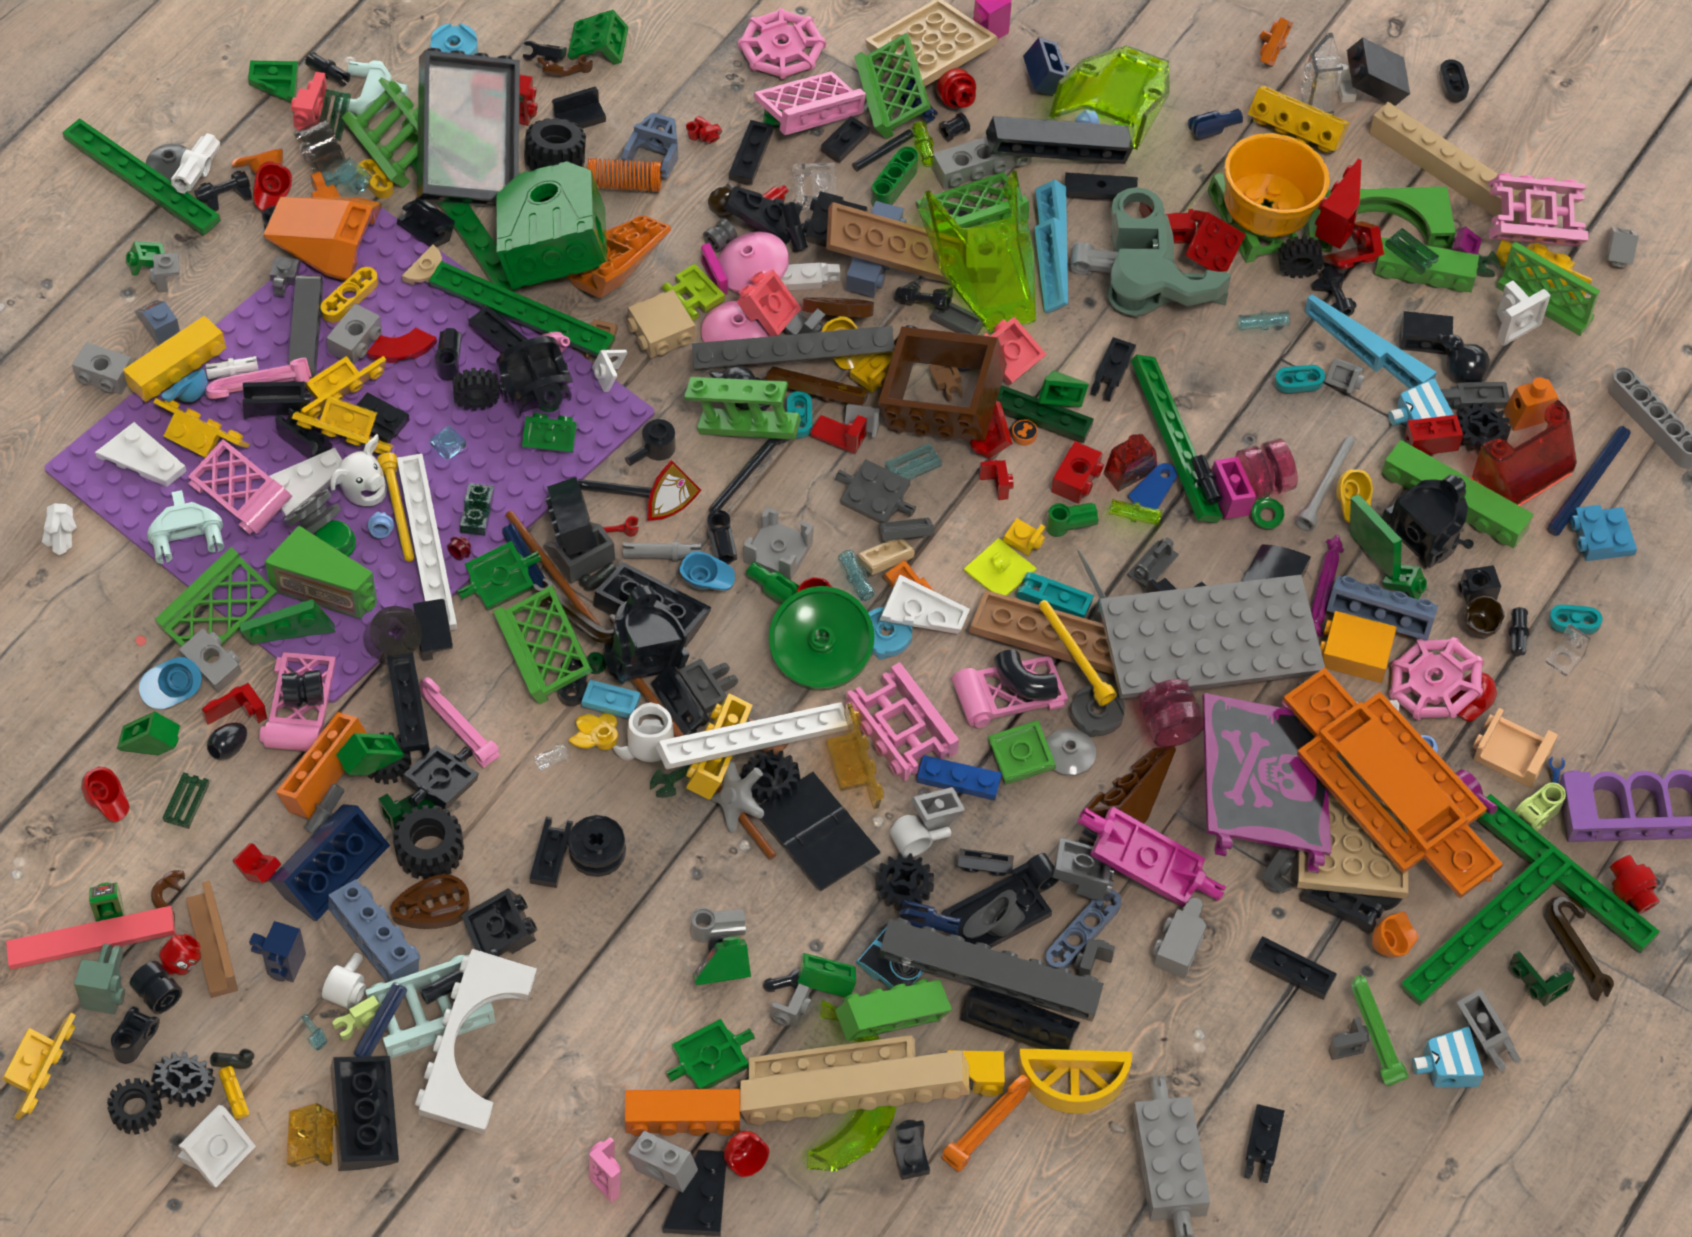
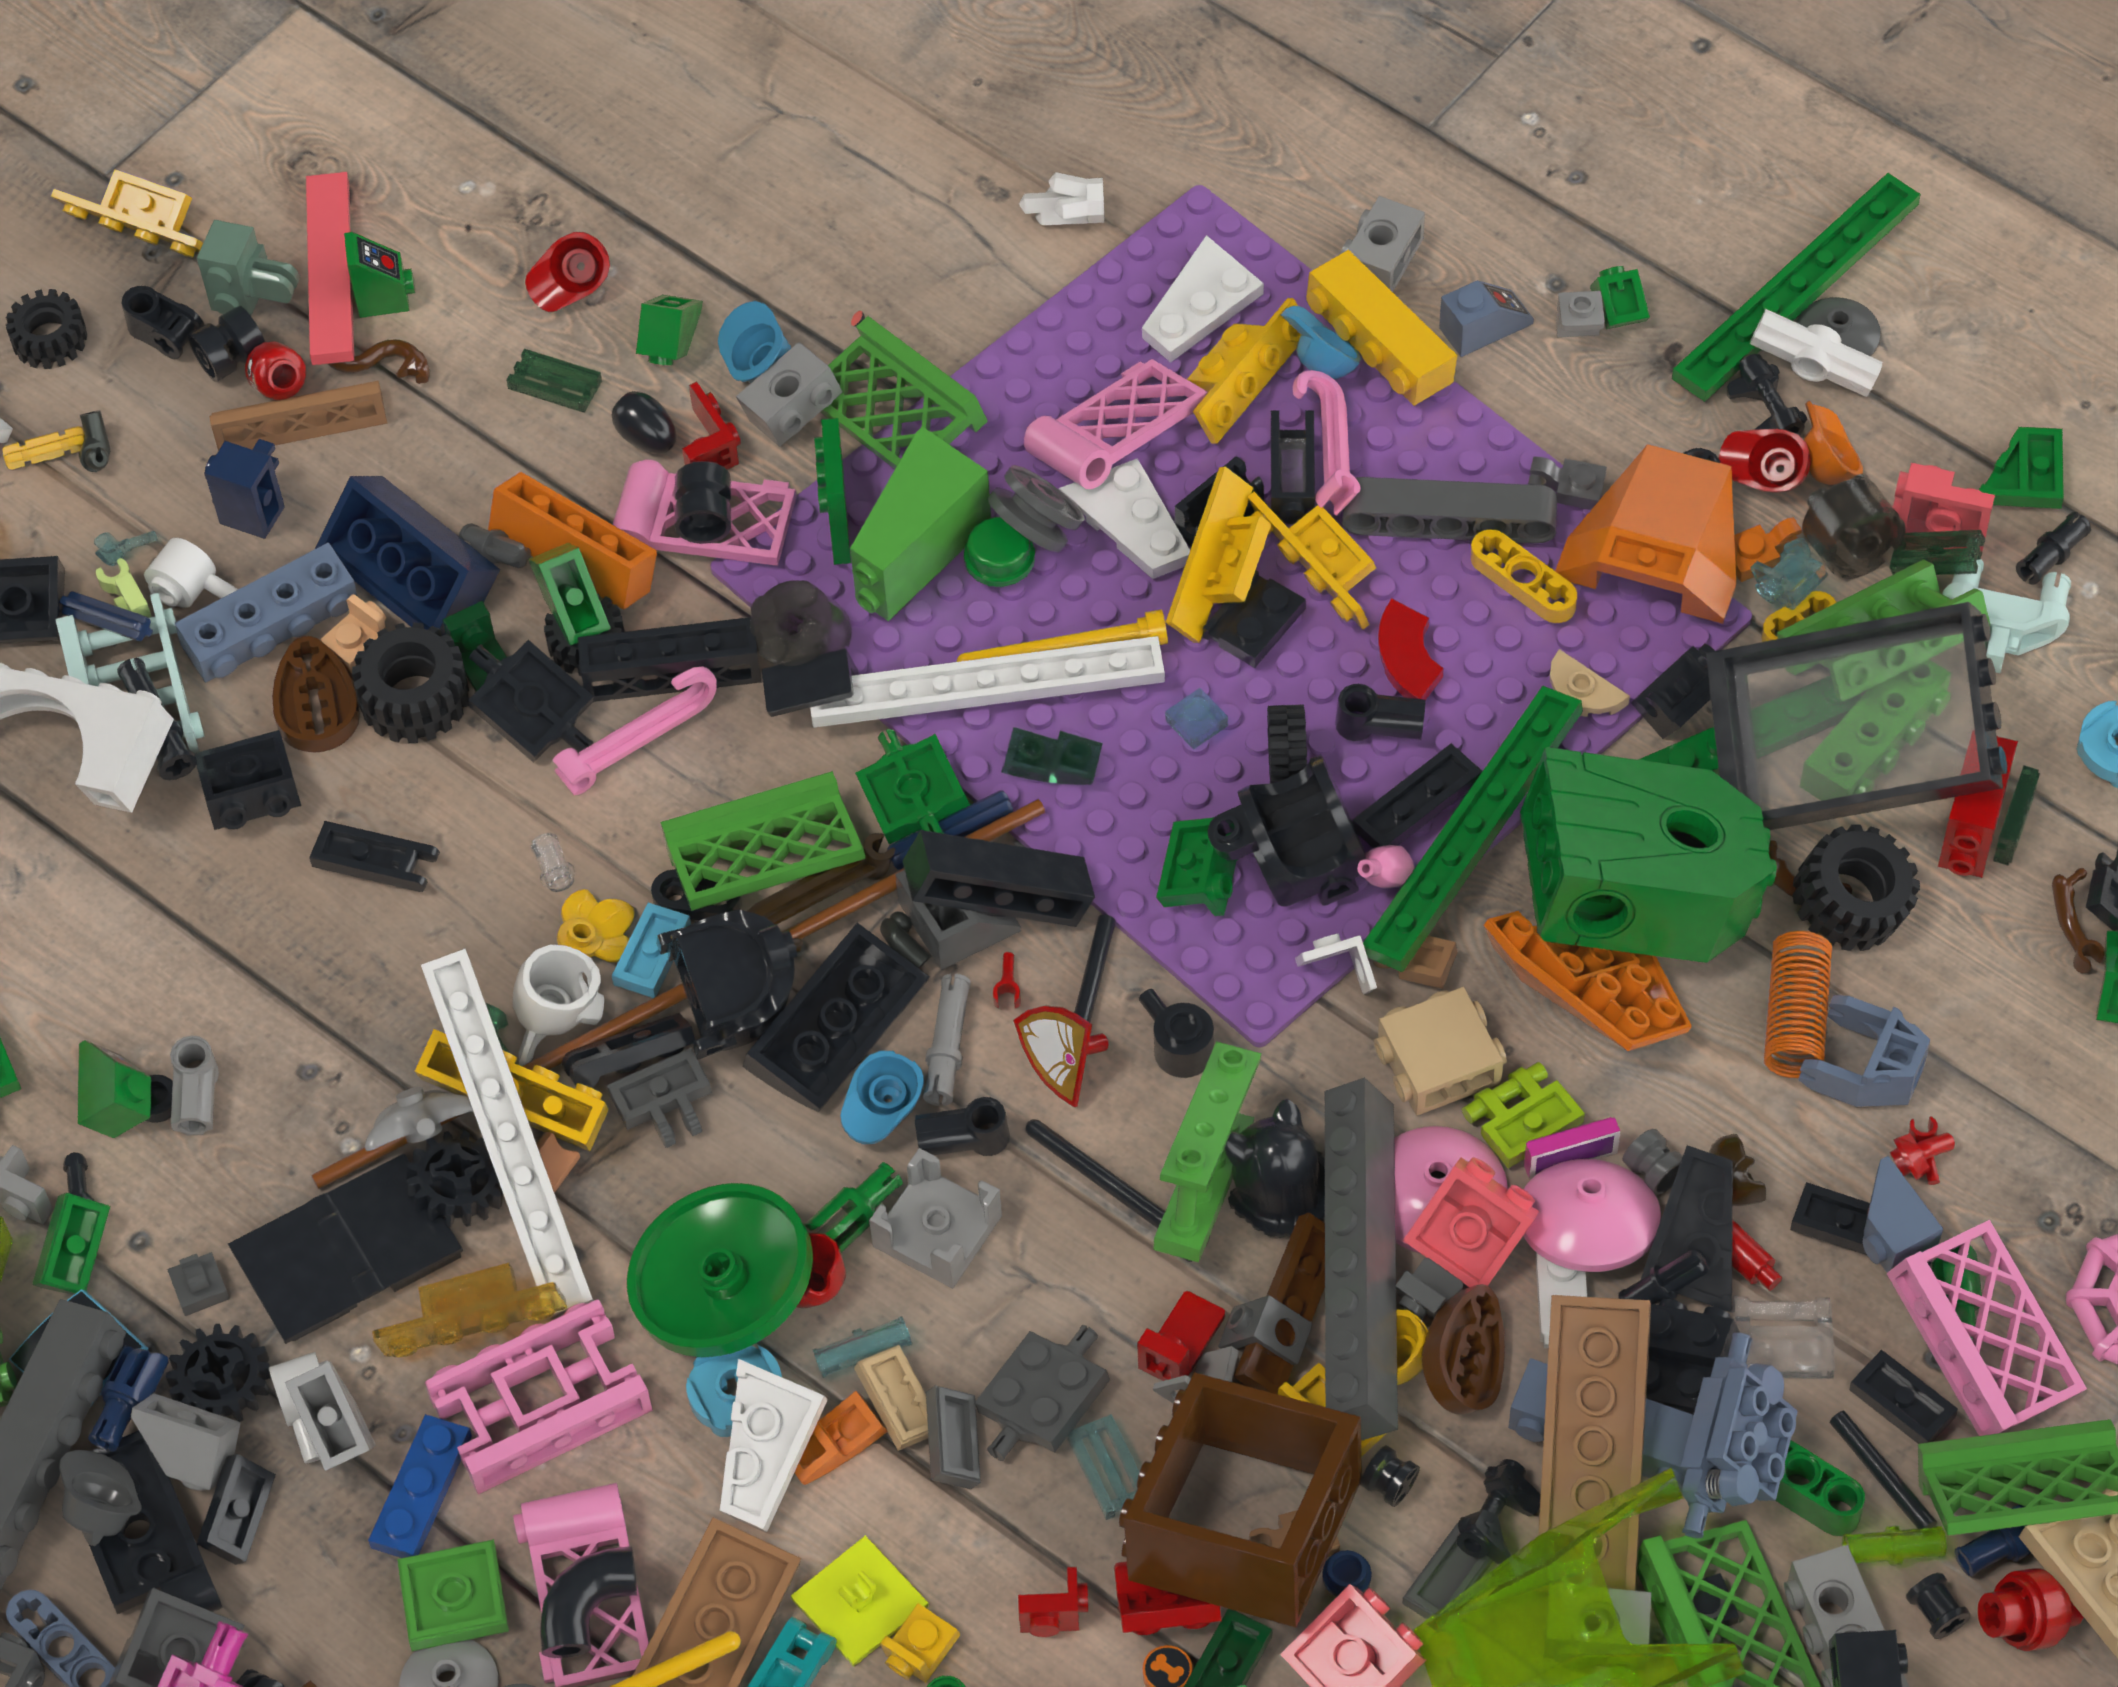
camera: 100 degrees right, 0 degrees up
(181, 522) = (1058, 348): light aqua connector -> none
(183, 1079) = (52, 378): black gear -> none
(231, 367) = (1370, 412): white pin -> none
(255, 865) = (418, 466): red bracket -> none
(354, 334) = (1415, 558): light grey brick -> none
(359, 473) = (1119, 576): white piece -> none
(380, 525) = (1028, 616): light blue plate -> none
(384, 883) = (354, 630): none -> light nougat bracket
(459, 547) = (971, 729): dark red plate -> none
(580, 108) = (1961, 940): black panel -> none
(597, 845) = (370, 918): black wheel -> none
(753, 131) = (1897, 1219): none -> sand blue slope
(804, 400) = (1229, 1273): teal plate -> none
(831, 398) = (1257, 1323): none -> dark grey bracket
(843, 907) = (198, 1283): none -> dark grey tile
(877, 173) = (1736, 1437): none -> sand blue piece
(951, 882) = (186, 1439): none -> light grey slope

